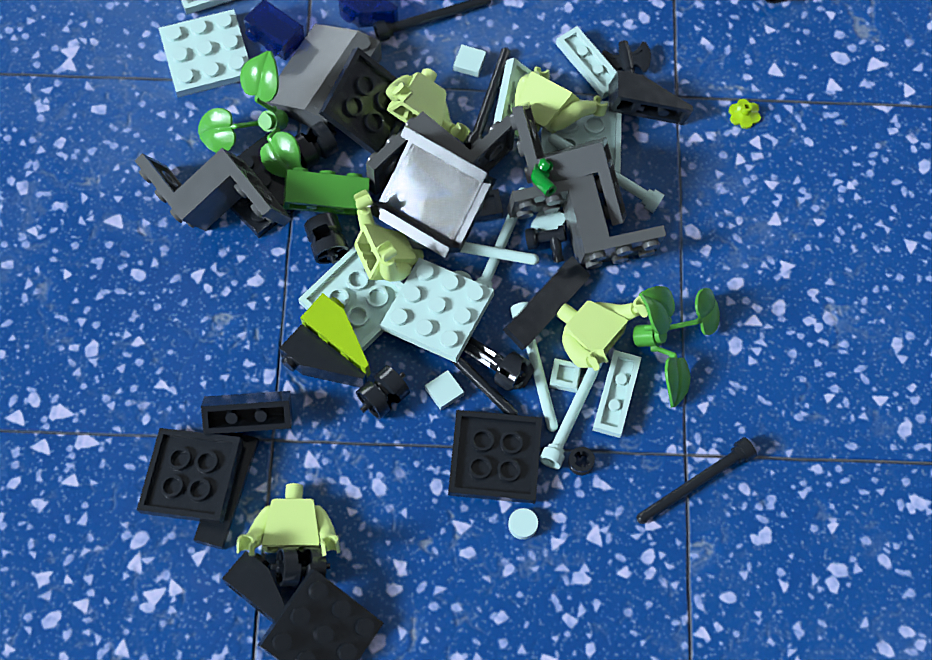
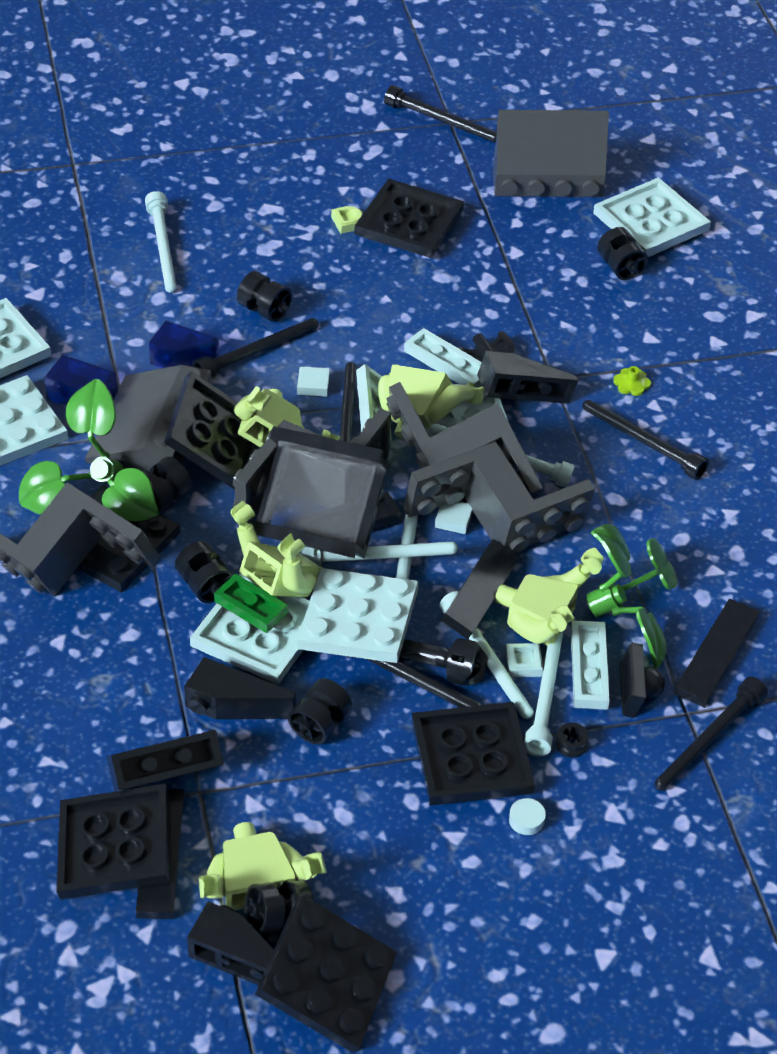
camera: 15 degrees left, 20 degrees down
(322, 191) = (179, 524): bright green brick -> none
(330, 323) = (245, 650): lime slope -> none
(353, 280) = (251, 603): none -> green plate
(444, 390) = (389, 700): light aqua tile -> none
(540, 177) = (439, 451): green arm -> none
(555, 237) = (465, 524): black piece -> none
(651, 419) = (637, 681): none -> black tile
(728, 403) = (716, 653): none -> black tile
(768, 213) = (692, 464): none -> black piece

